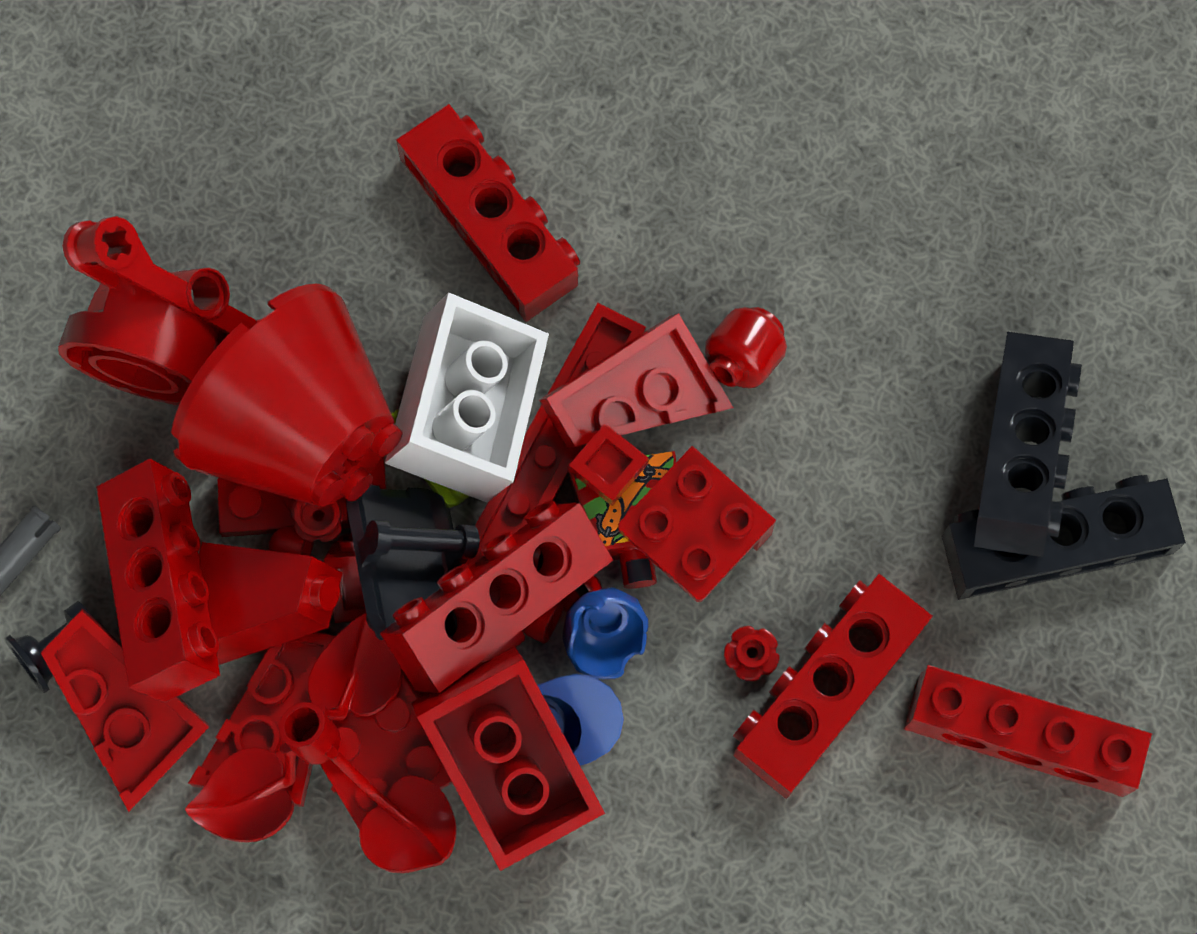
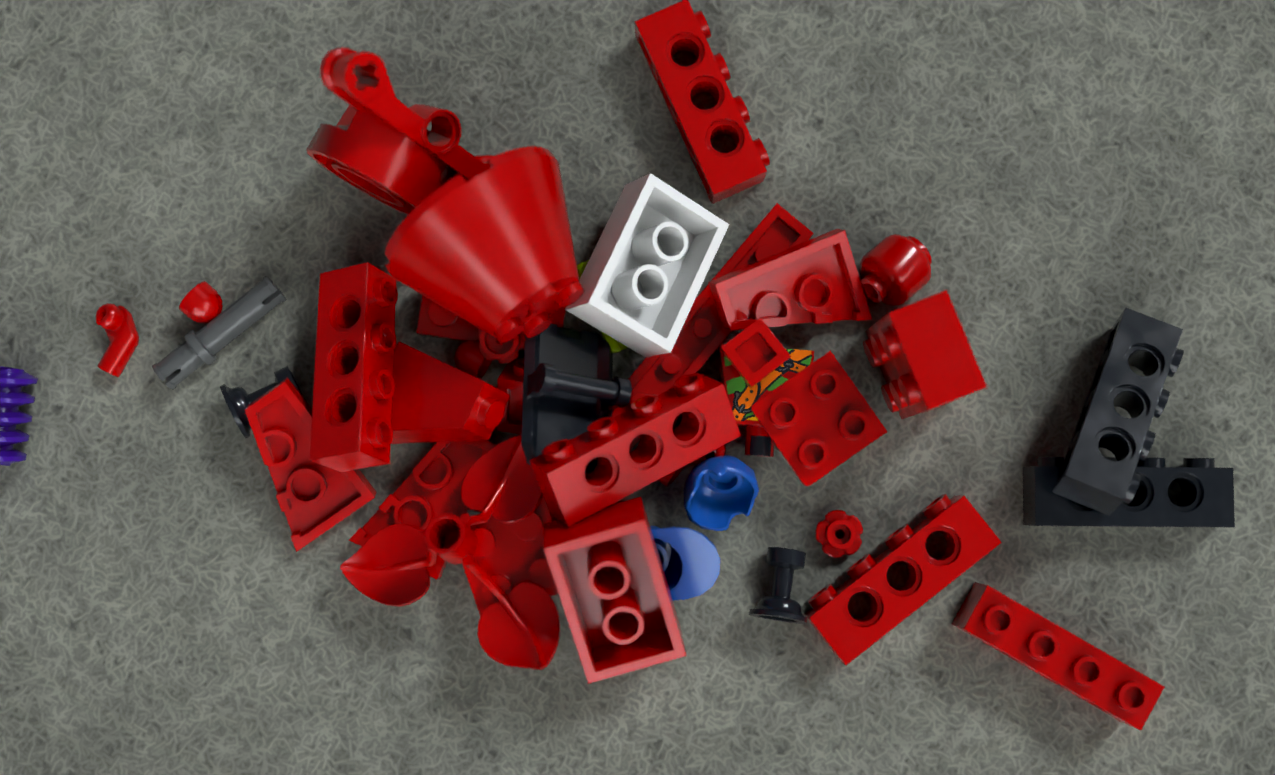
camera: 20 degrees right, 10 degrees up
(701, 748) = (779, 605): none -> black piece
(794, 427) = (923, 356): none -> red brick

